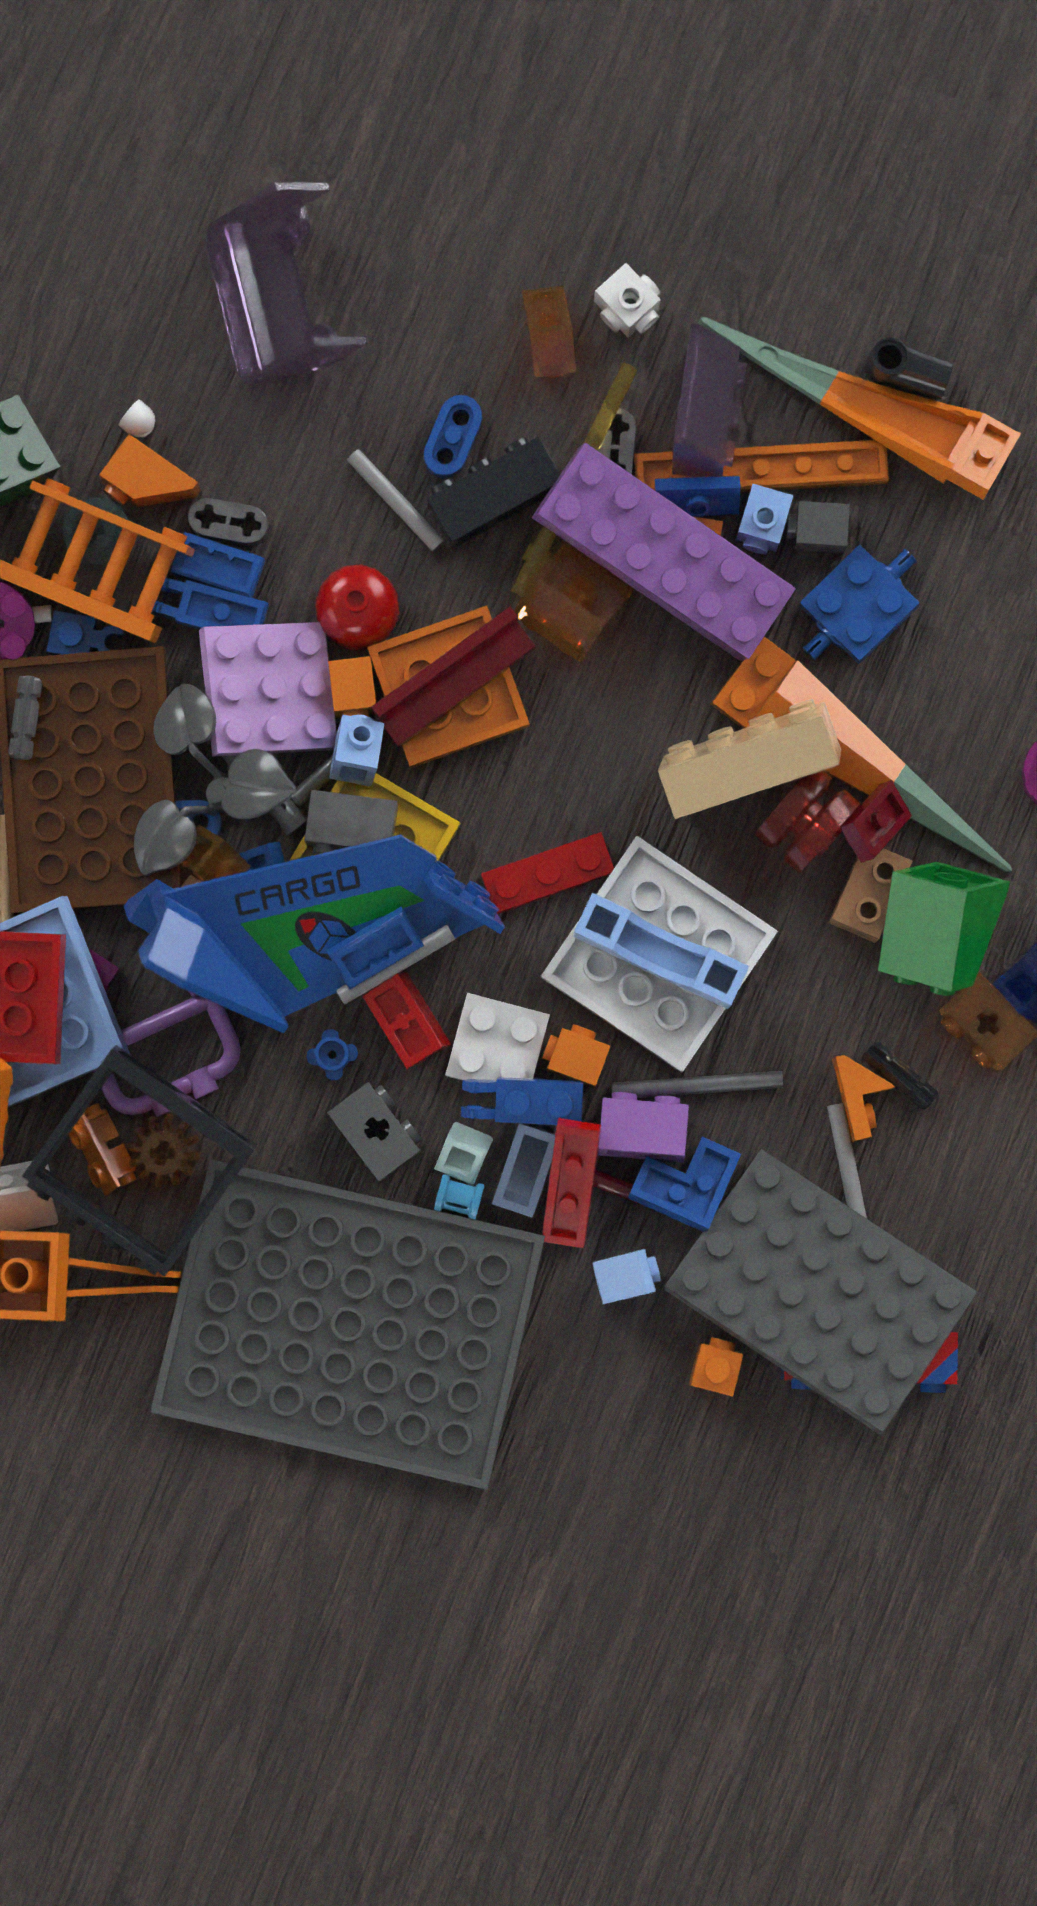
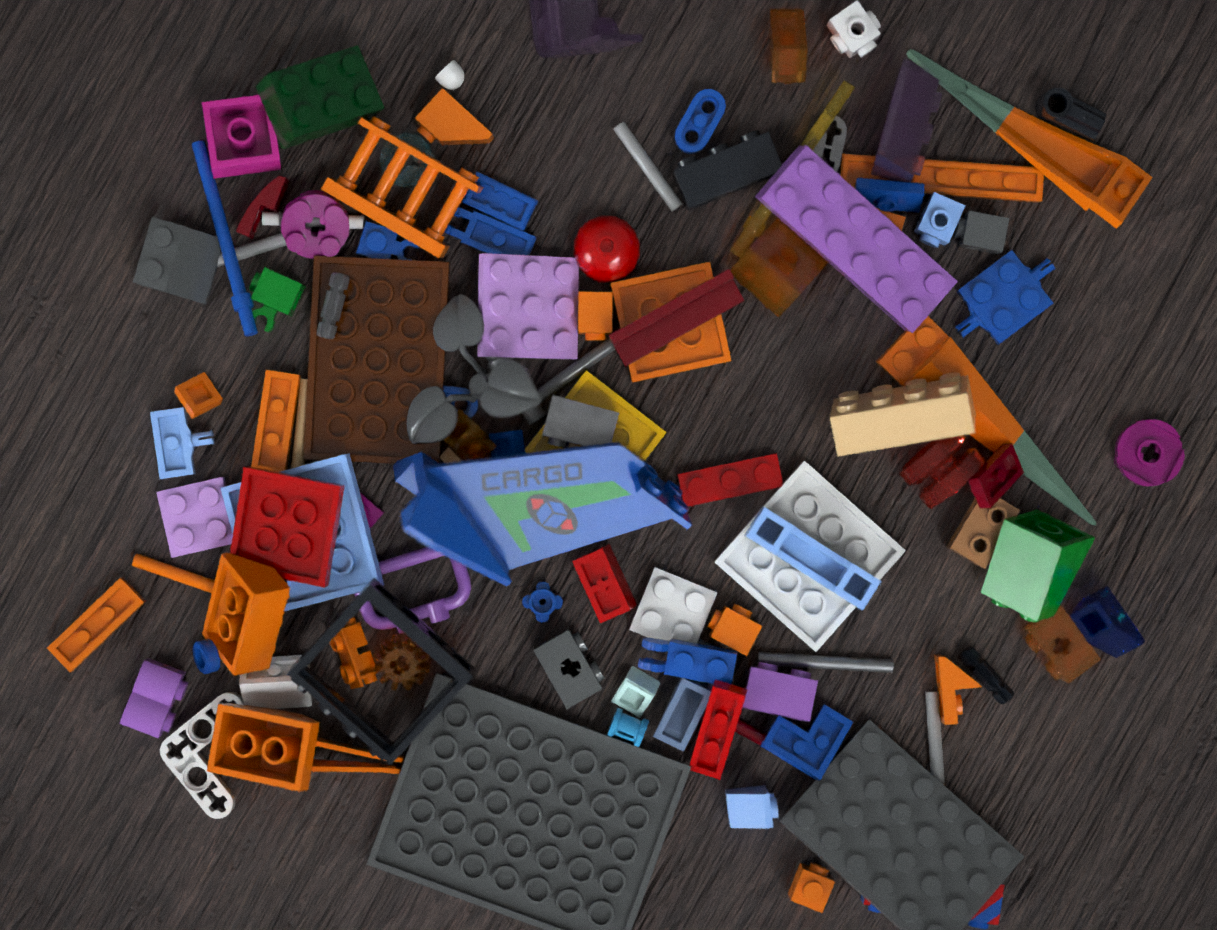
camera: 10 degrees right, 5 degrees up
(230, 512) = (516, 159): flat silver beam -> none
(356, 749) = (592, 365): light blue brick -> none
(375, 948) = (587, 527): blue plate -> none
(431, 943) = (601, 541): light grey bar -> none

